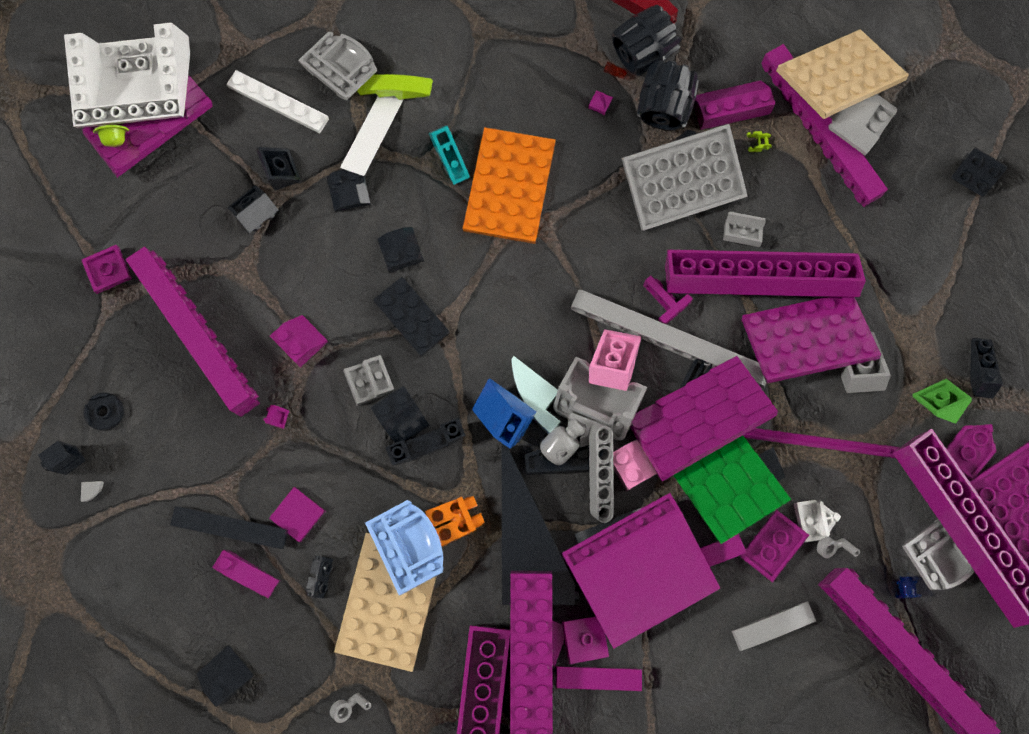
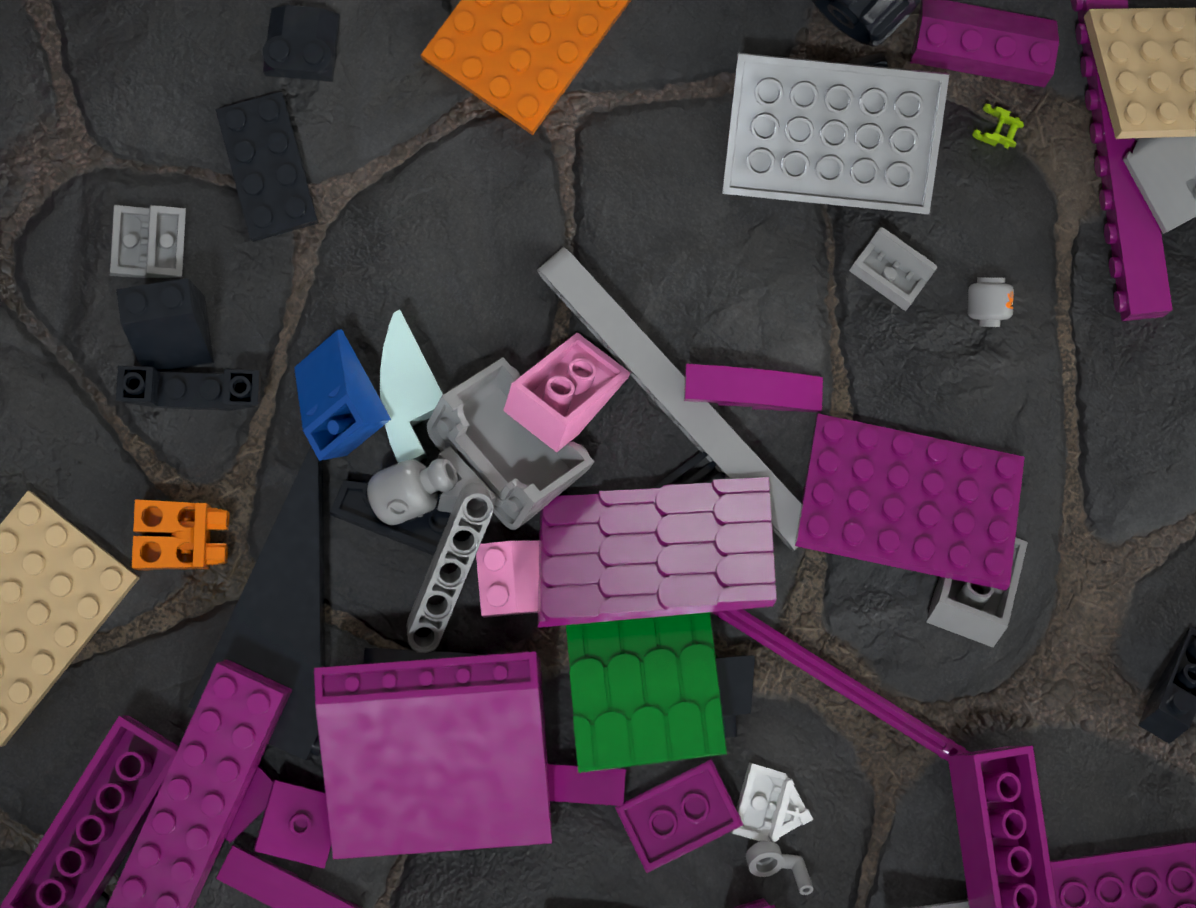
camera: 20 degrees right, 5 degrees up
(299, 339) = (62, 122): magenta slope -> none
(407, 545) = (79, 542): light blue slope -> none
(666, 299) = (703, 331): magenta bracket -> none
(705, 317) = (753, 388): none -> magenta slope
(764, 273) = (886, 358): magenta brick -> none
(798, 224) = (990, 301): none -> light grey head
(944, 400) = (1081, 709): bright green slope -> none
(972, 448) = (1089, 810): magenta tile -> none

